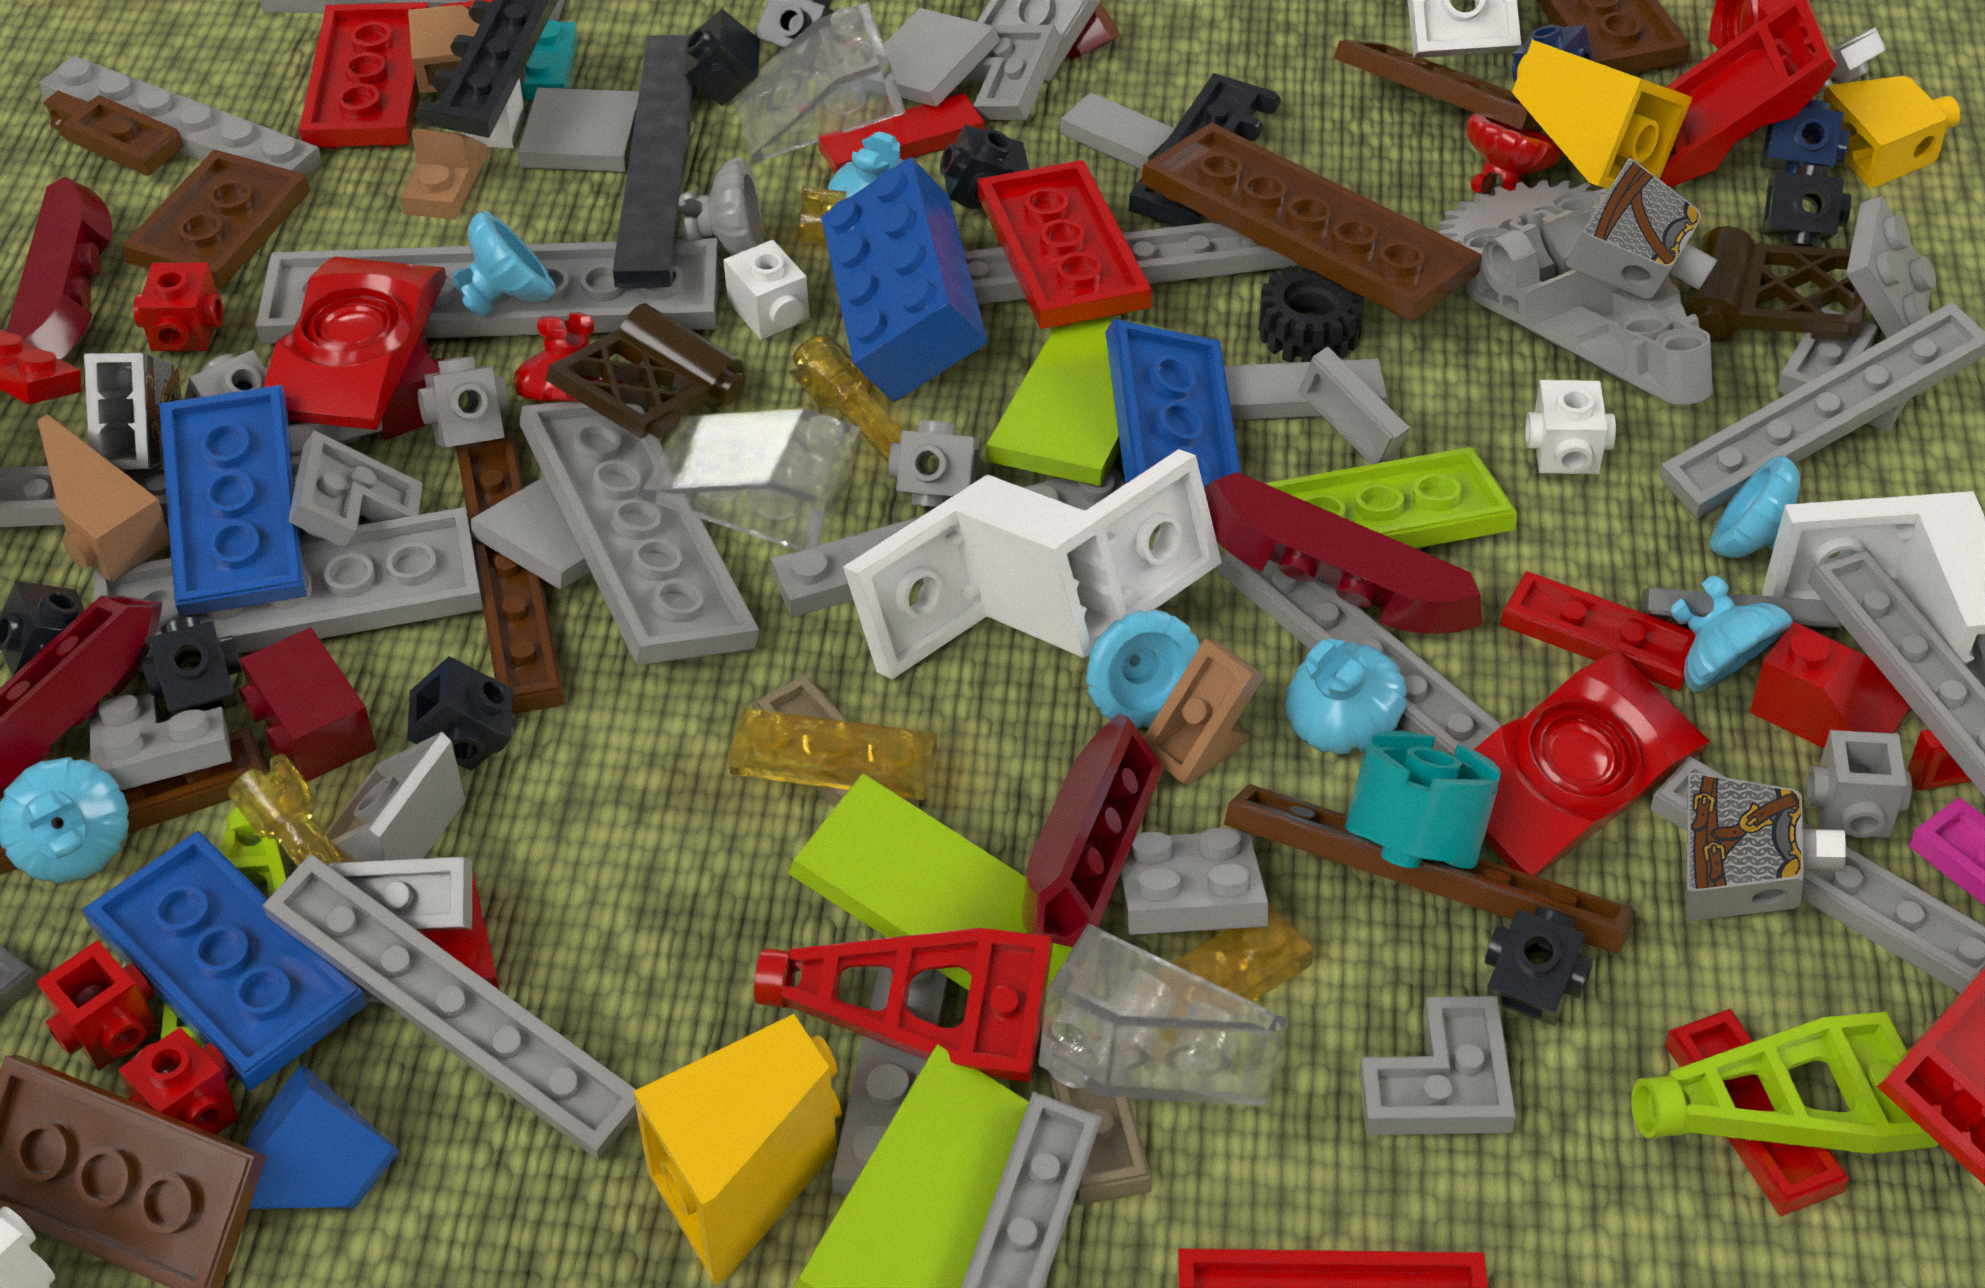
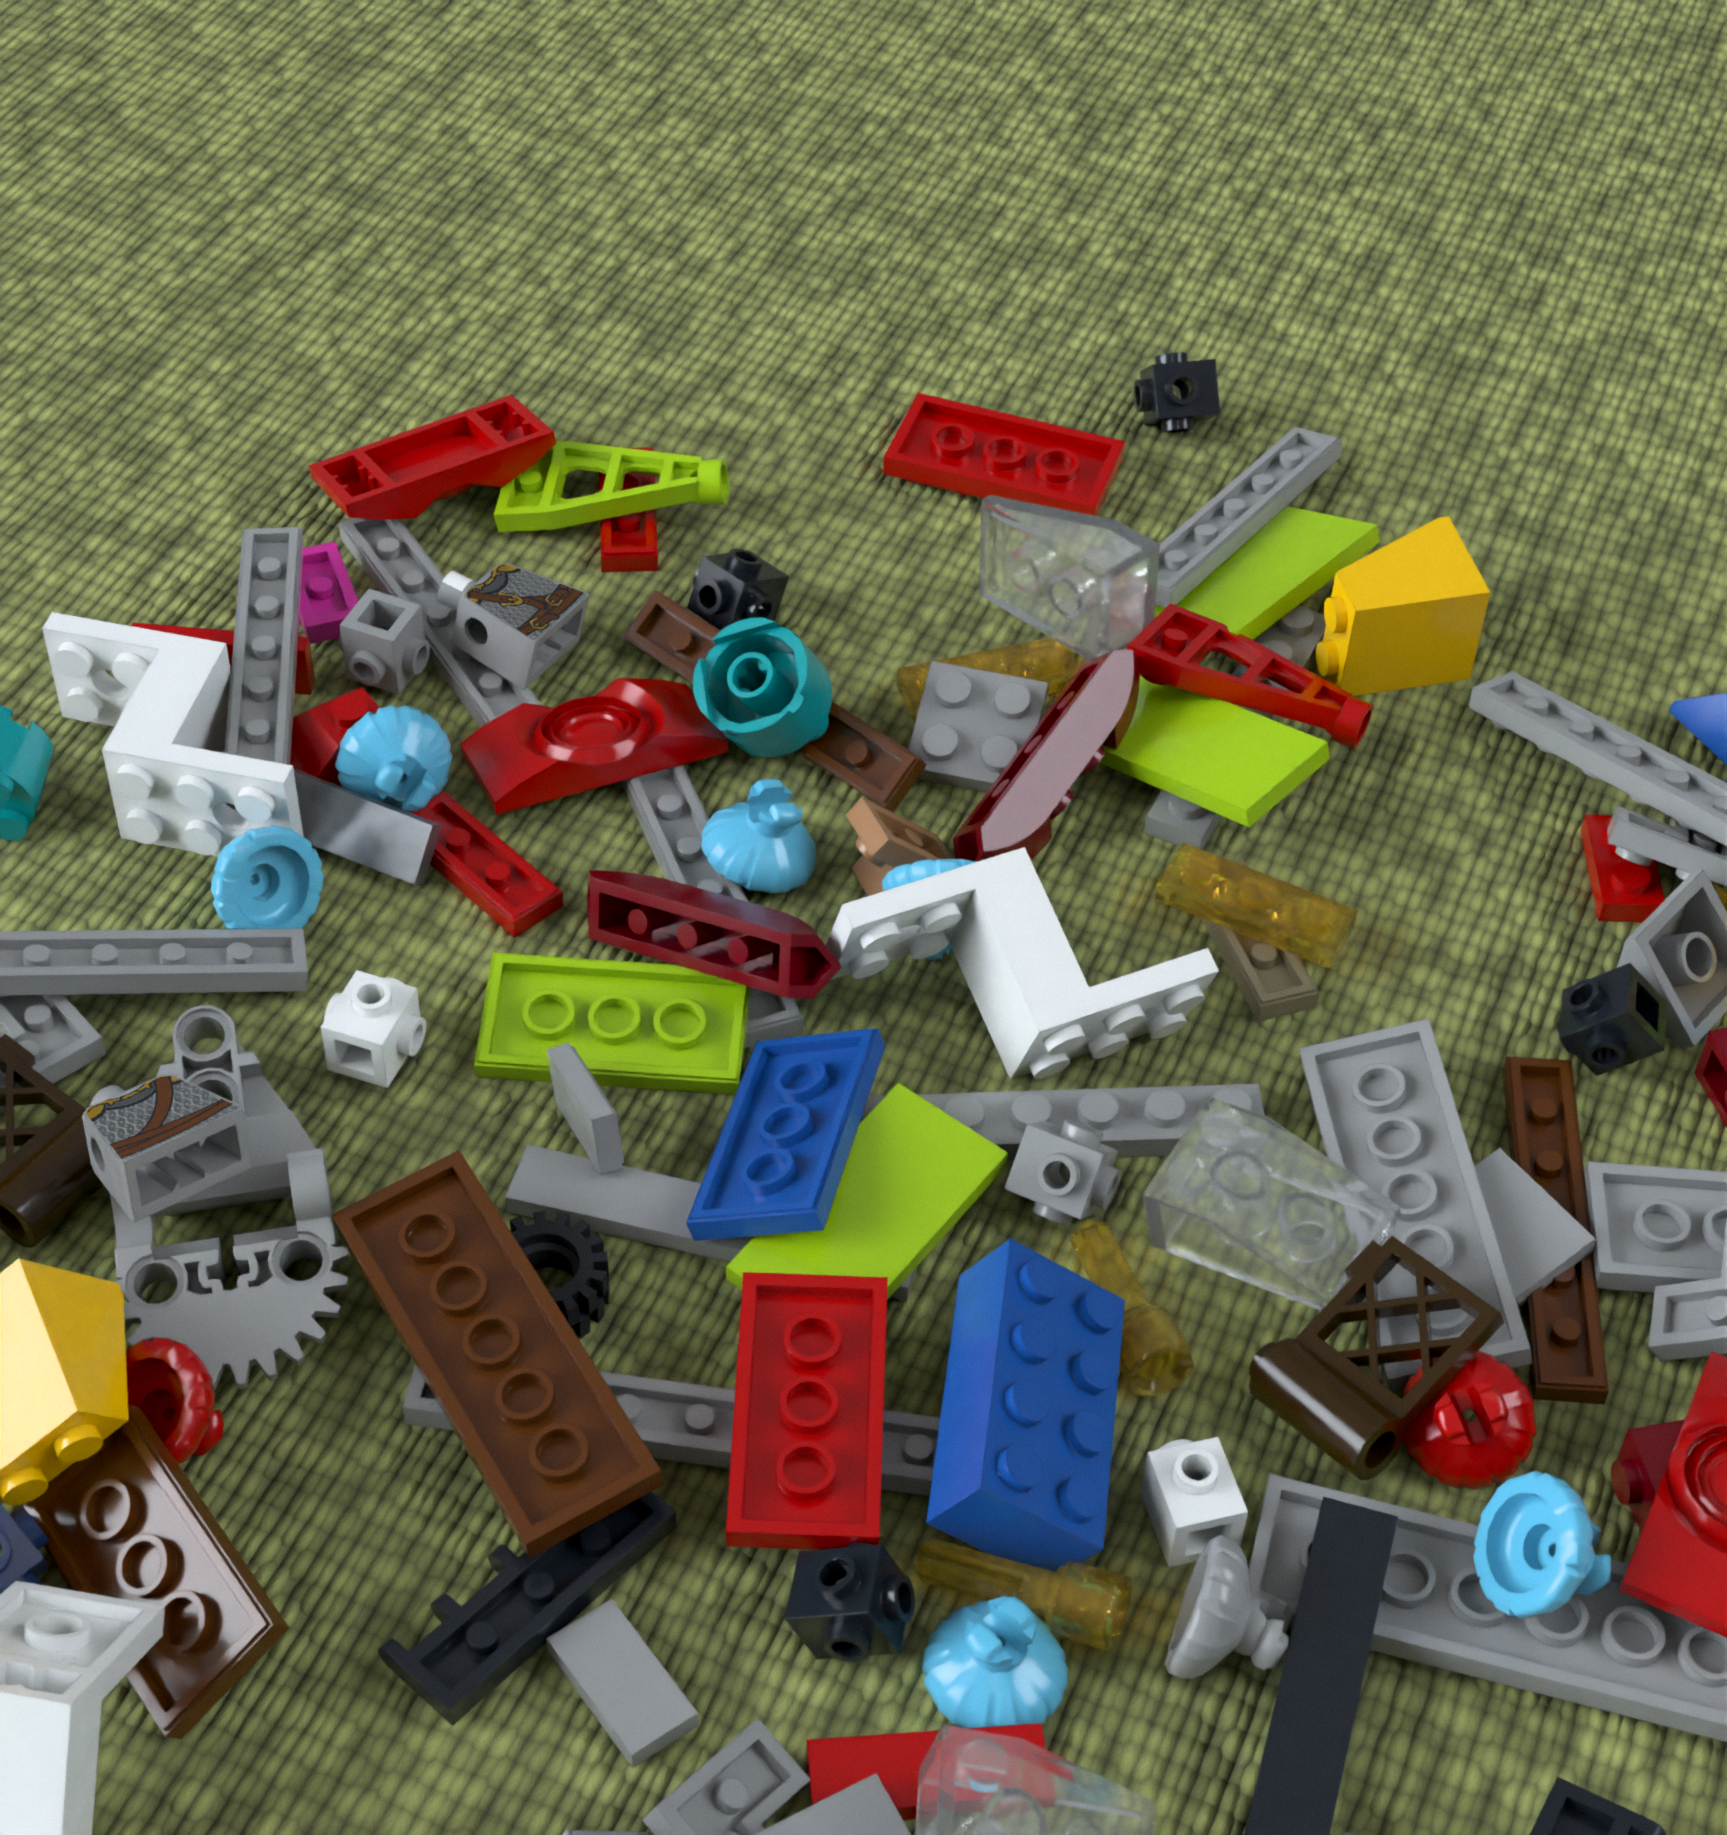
camera: 165 degrees left, 0 degrees up
(479, 418) = (1574, 1386): light grey brick -> none
(1452, 1090) = (841, 556): light grey plate -> none

